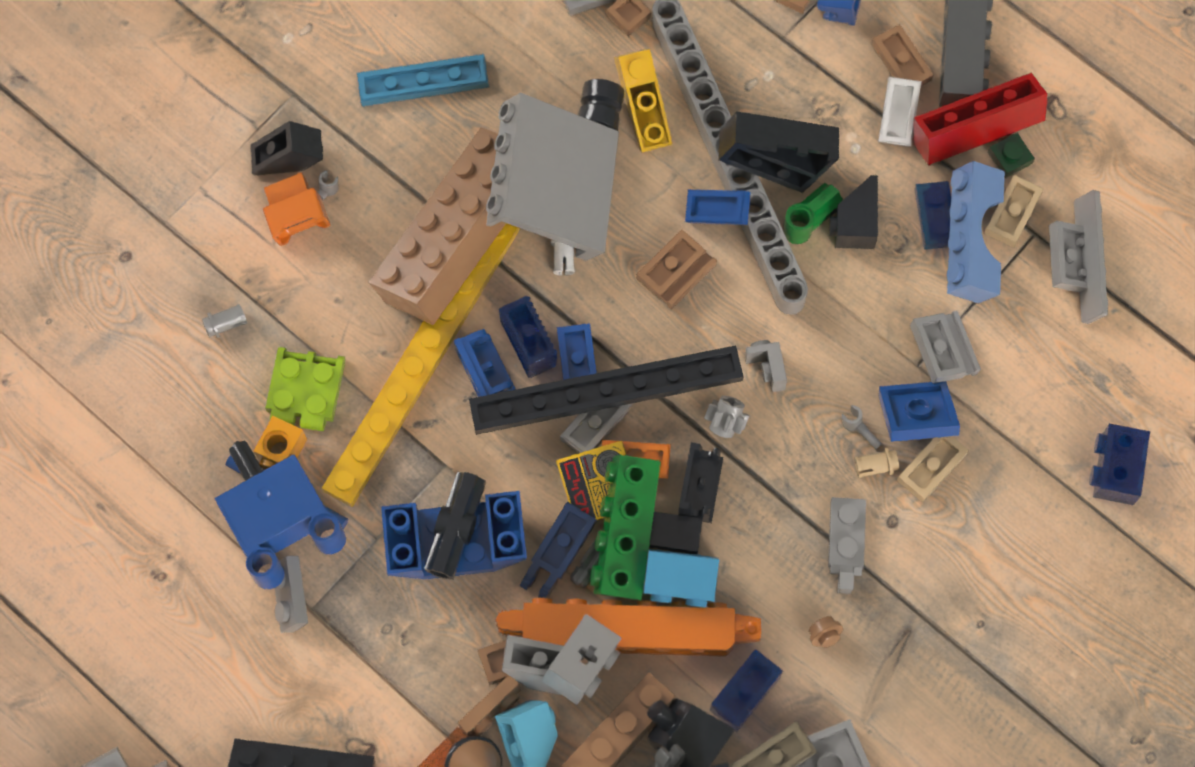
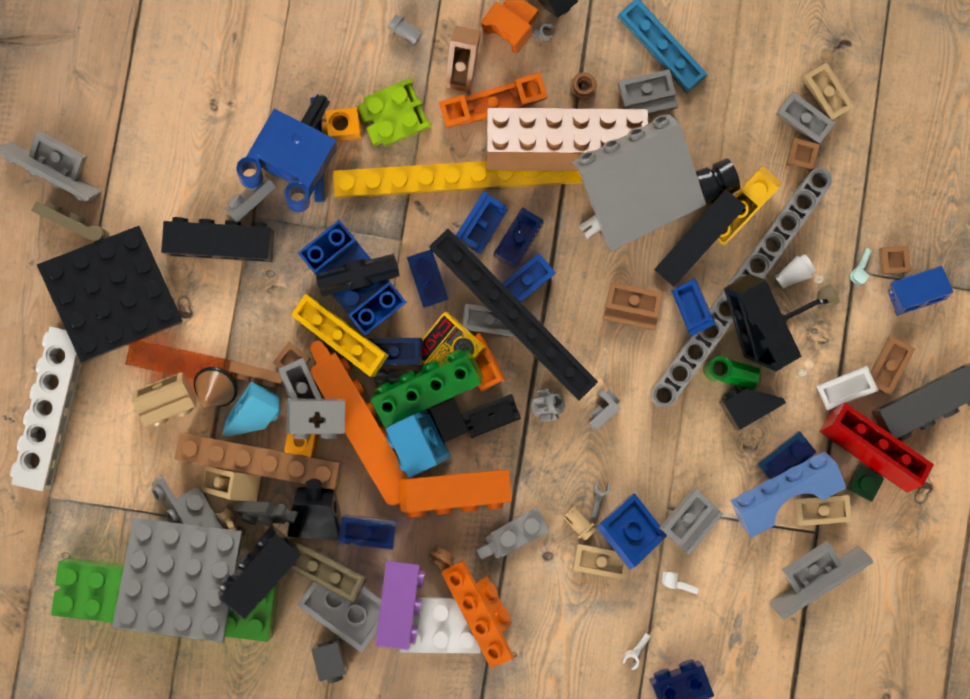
camera: 55 degrees right, 15 degrees up
(297, 280) = (462, 58): none -> medium nougat slope
(313, 659) = (218, 240): none -> black brick
(358, 296) = (473, 108): none -> orange slope
(408, 171) = (583, 78): none -> medium nougat plate
(462, 118) = (649, 92): none -> light grey plate
(507, 460) = (427, 278): none -> clear blue plate
(507, 588) = (339, 335): none -> yellow plate
(599, 706) = (302, 447): none -> light orange brick
(649, 158) = (700, 237): none -> black tile
(746, 88) = (796, 271): none -> white cone
(759, 566) = (454, 491): none -> orange brick
(788, 34) = (858, 275): none -> light aqua hand
(791, 77) = (826, 297): none -> hinge
(849, 698) = (399, 605): none -> medium lavender brick
(899, 682) = (442, 628): none -> white plate
(911, 623) = (481, 611): none -> orange bracket
(997, 407) = (670, 580): none -> white hand
(1054, 490) = (636, 651): none -> white hand

